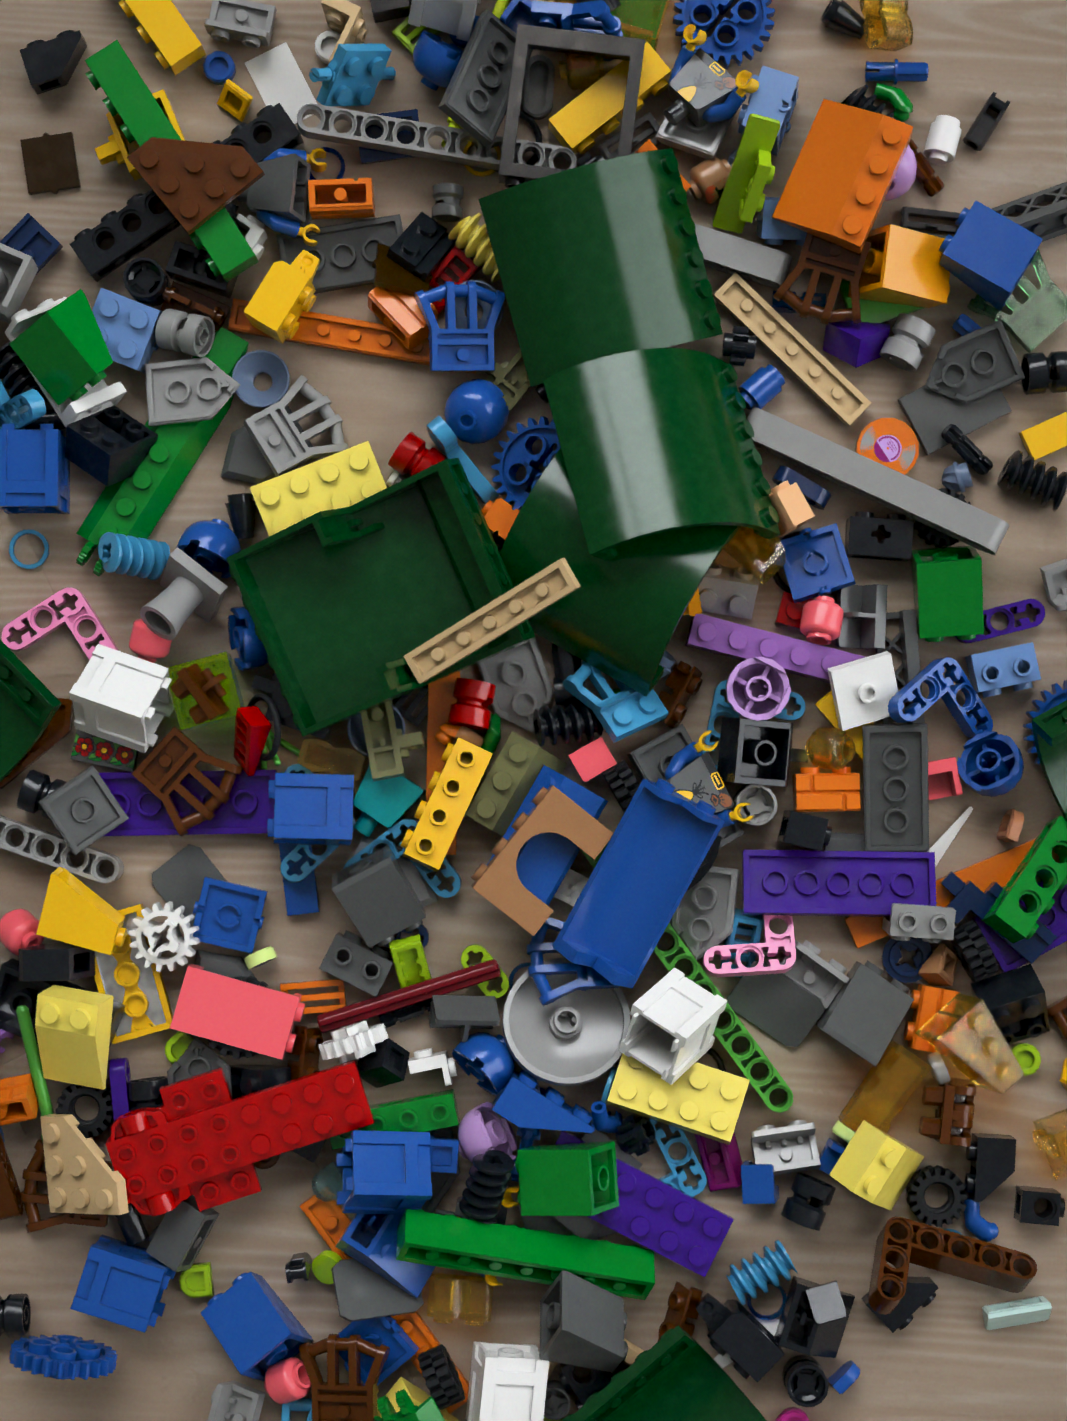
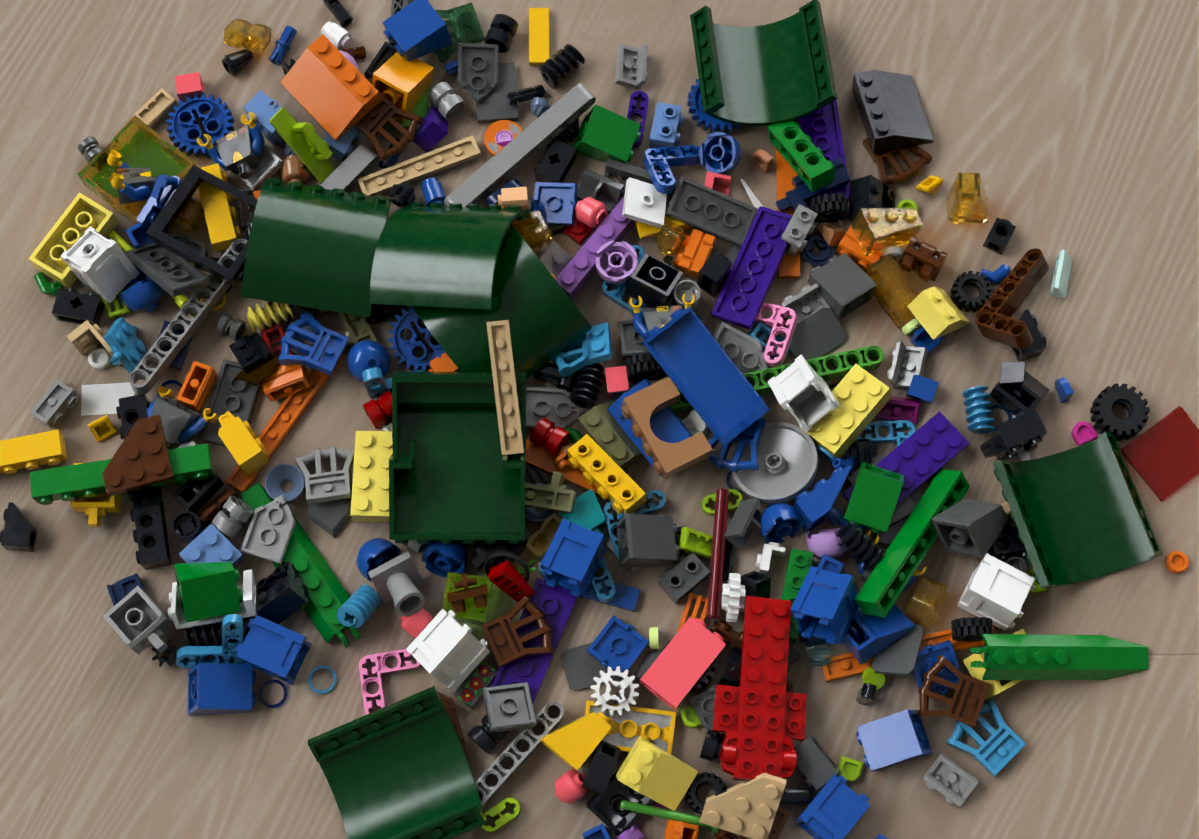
camera: 65 degrees left, 15 degrees down
(50, 163) = (81, 561): dark brown piece -> none
(119, 1076) = (705, 765): dark purple beam -> none
(219, 67) = (76, 431): blue tile -> none
(242, 512) = (363, 531): black cone -> none
(287, 1381) = (938, 733): coral head -> none
(680, 1306) = (983, 469): reddish brown hinge -> none
(684, 685) = (593, 310): reddish brown hinge -> none
(802, 1211) = (945, 365): black wheel -> none
(805, 1381) = (1057, 411): black wheel -> none
(897, 98) = (295, 52): green arm -> none
(990, 1165) = (963, 252): black slope -> none

